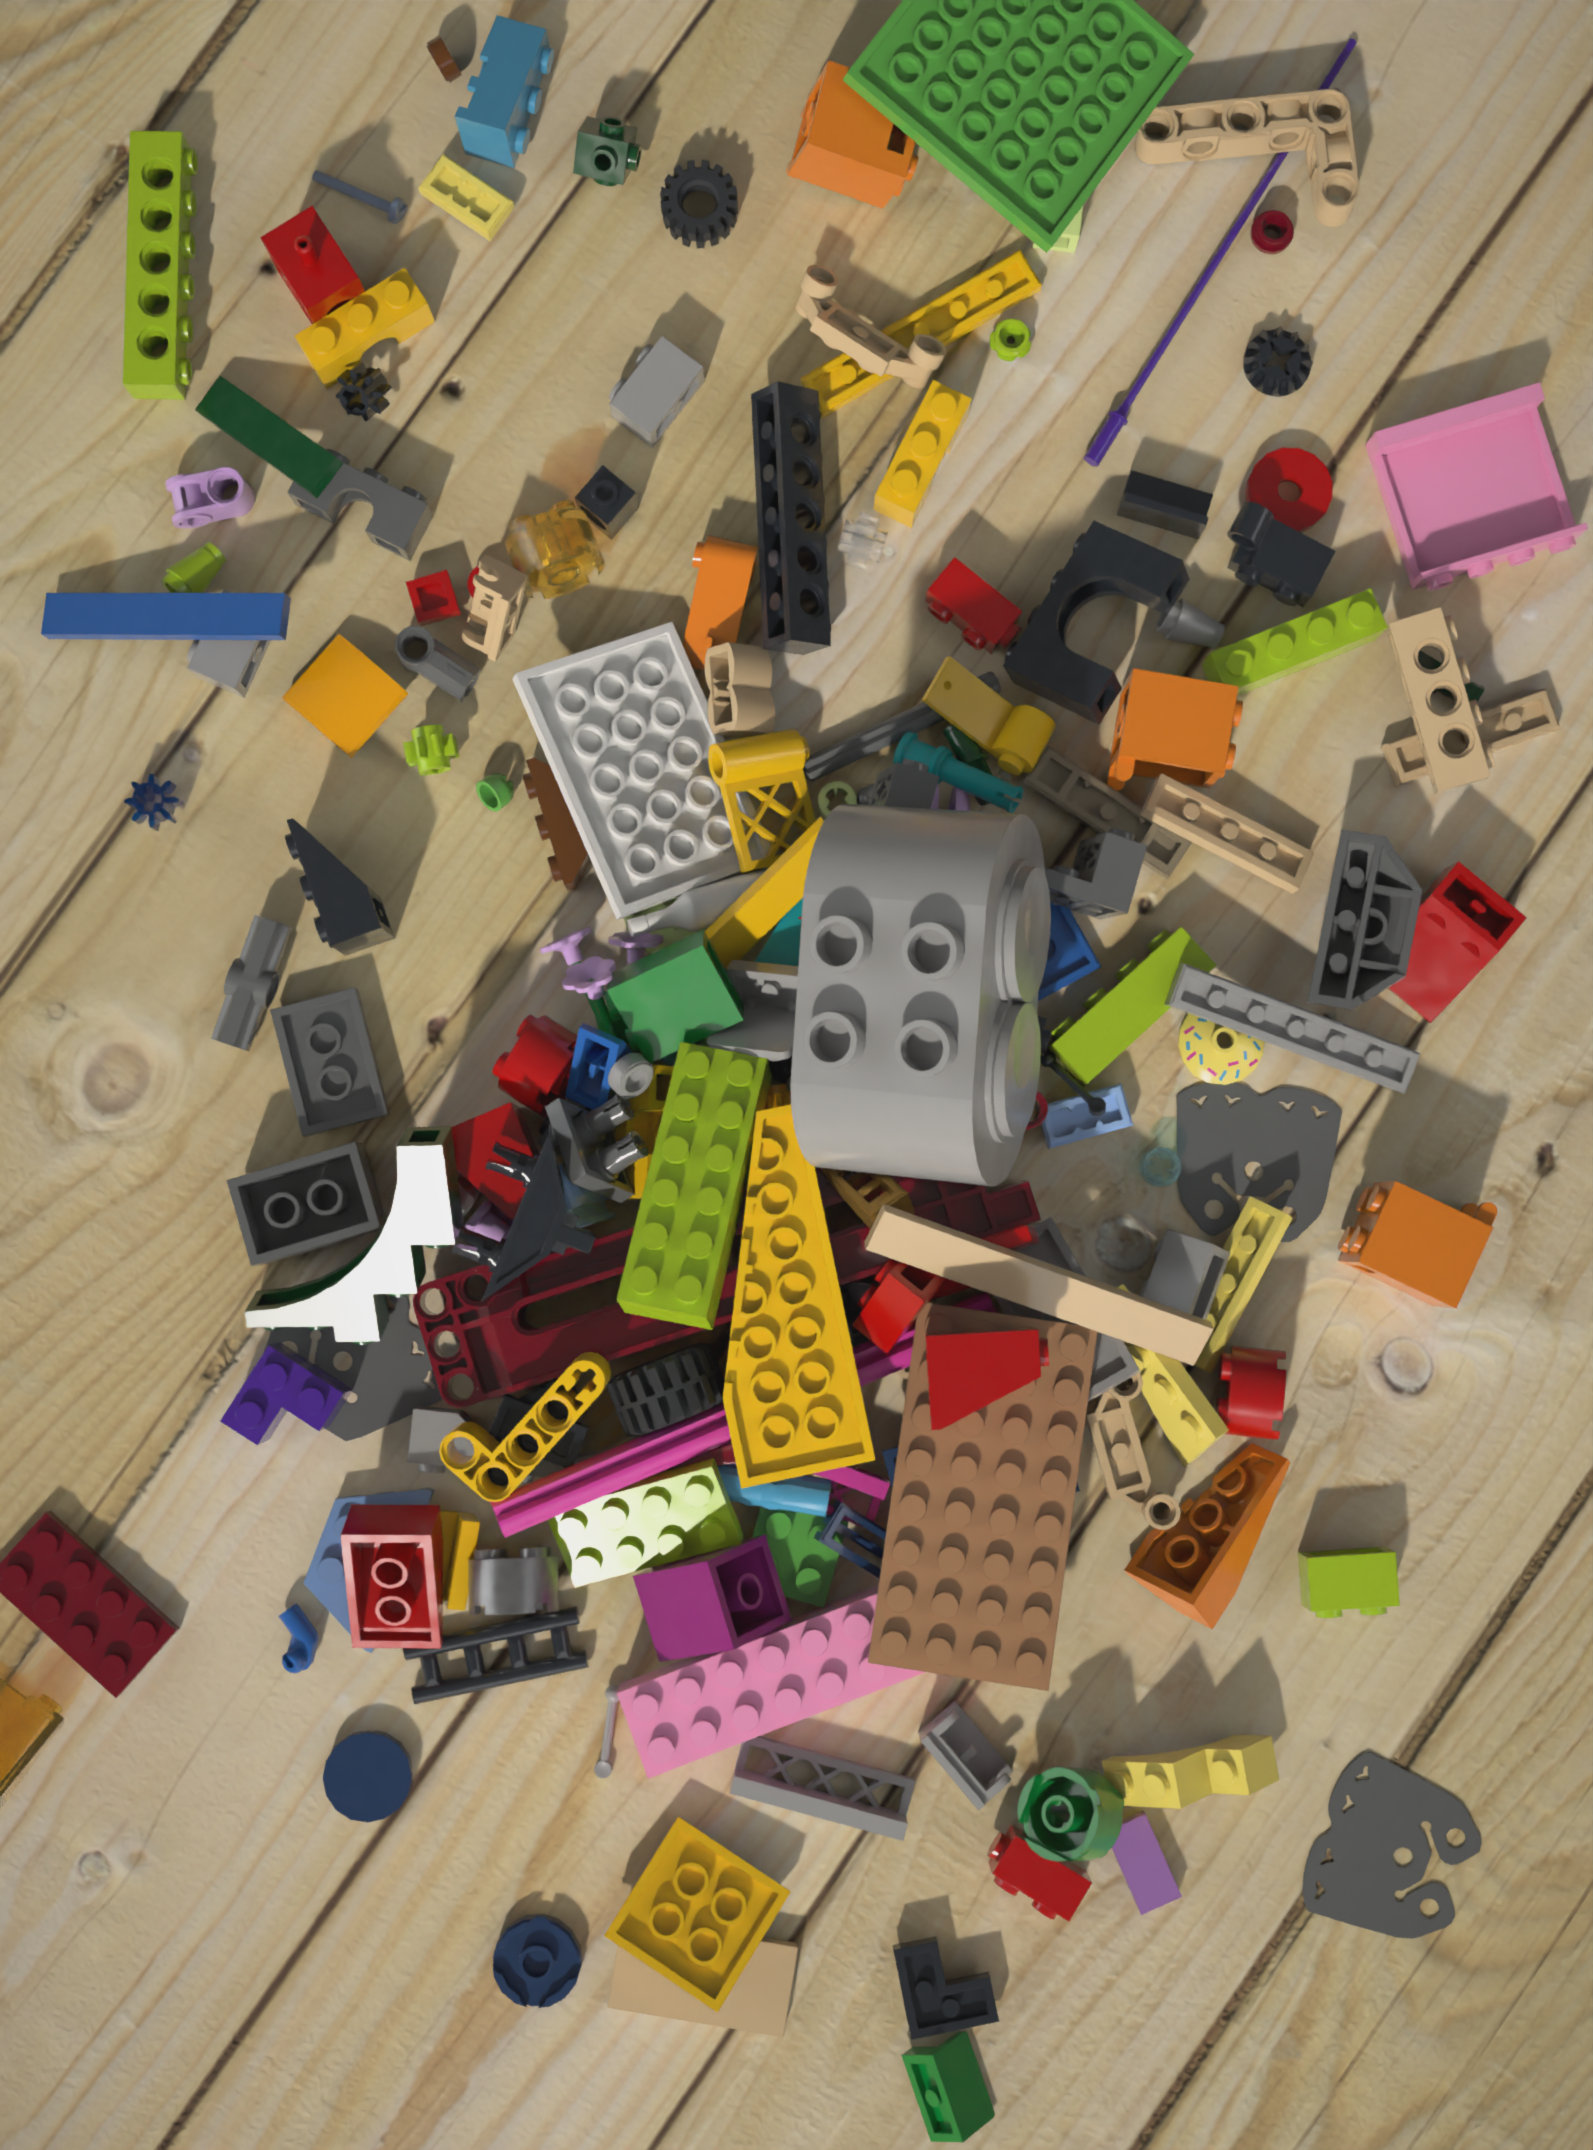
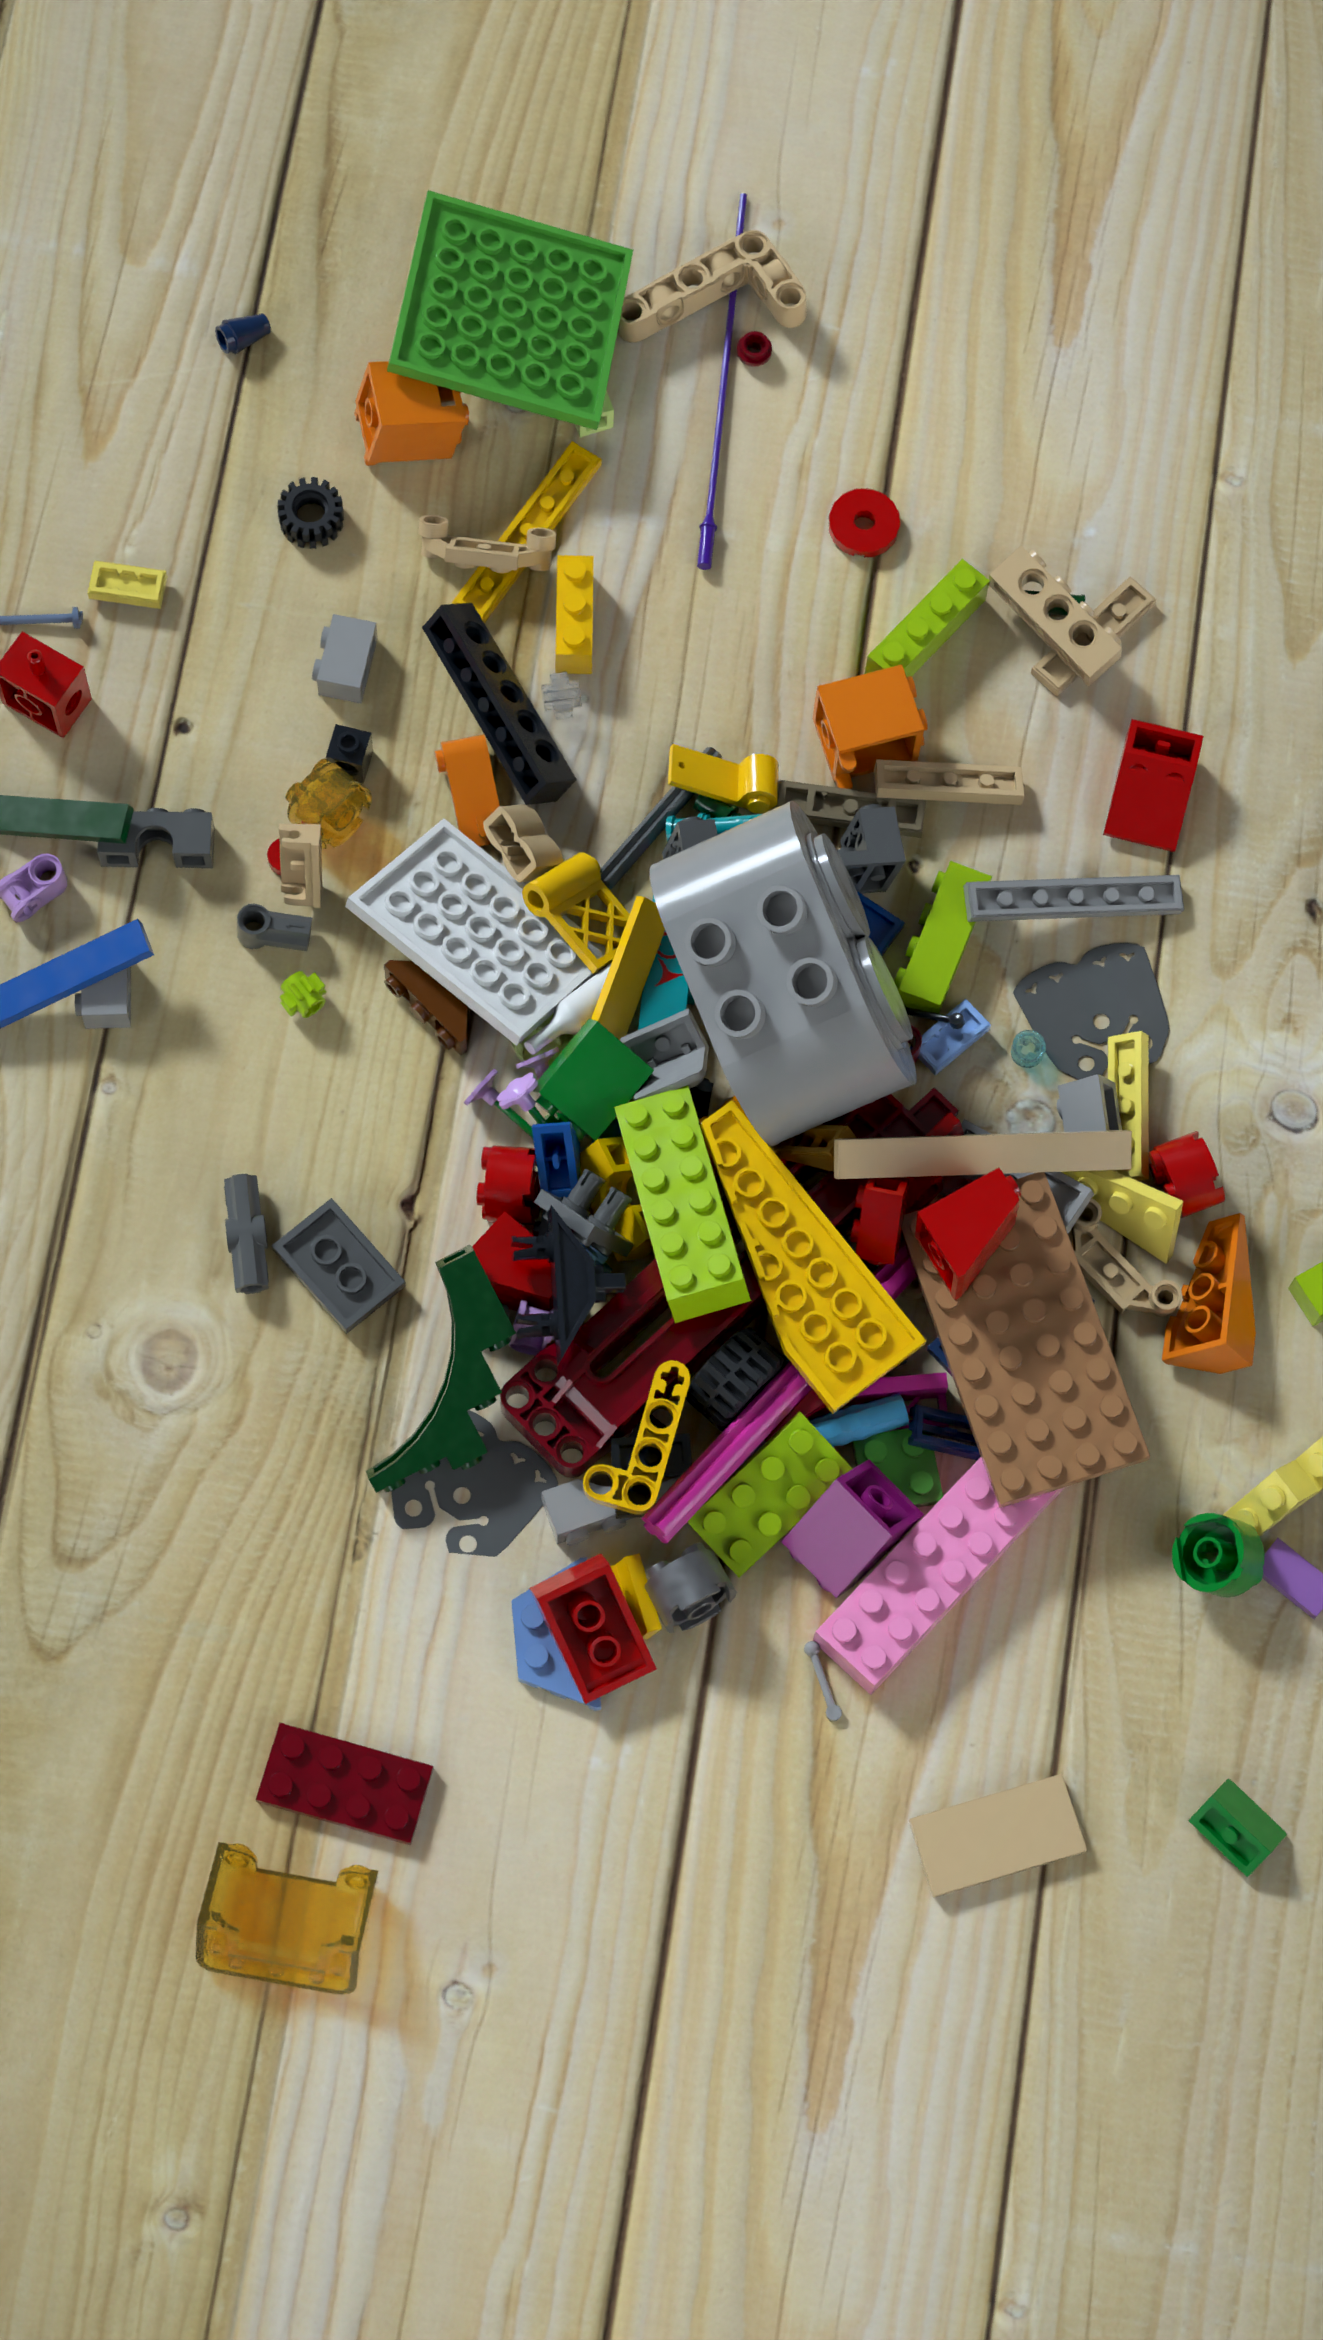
camera: 25 degrees left, 15 degrees down
(146, 793) = (108, 1126): clear blue gear -> none
(194, 571) = (47, 944): lime cone -> none
(282, 1384) = (431, 1524): dark purple brick -> none
(303, 1640) = (540, 1726): blue arm -> none
(307, 1203) = (377, 1376): dark grey brick -> none
(345, 695) = (213, 986): light orange slope -> none
(348, 909) = (286, 1125): black slope -> none
(363, 391) = (114, 766): black gear -> none
(368, 1776) = (647, 1808): dark blue tile -> none
(384, 311) = (81, 727): yellow arch -> none
(433, 598) = (247, 883): red plate -> none
(443, 59) = (60, 494): reddish brown tile -> none
(495, 791) = (360, 1005): bright green hinge -> none
(505, 92) = (122, 496): dark azure wedge -> none
(521, 1668) = (696, 1688): black bar -> none
(537, 1960) = (858, 1890): dark blue tile -> none
(606, 150) = (222, 504): dark green brick -> none
(630, 1075) = (588, 1150): light grey tile -> none
(697, 1914) = (968, 1780): yellow plate -> none
(822, 1803) = (1020, 1649): light grey fence -> none
(823, 802) = (631, 885): yellowish green bush -> none
(940, 2004) = (1187, 1763): black plate -> none
(966, 1755) = (1113, 1561): light grey hinge -> none
(973, 607) = (671, 706): red brick -> none
(1018, 331) = (598, 498): lime plate -> none
(1052, 1885) = (1219, 1621): red brick -> none
(1100, 566) = (751, 634): black arch -> none
(1165, 504) = (776, 573): black panel -> none
(1190, 626) = (839, 648): light grey cone -> none
(1208, 1060) = (1024, 953): light yellow dish -> none
(1273, 380) = (810, 450): black gear -> none
(1276, 556) = (879, 569): black hinge -> none
(1365, 923) = (1086, 793): dark grey wedge -> none
(1417, 1242) = (1249, 1008): orange container -> none
(1472, 488) = (998, 461): bright pink panel -> none

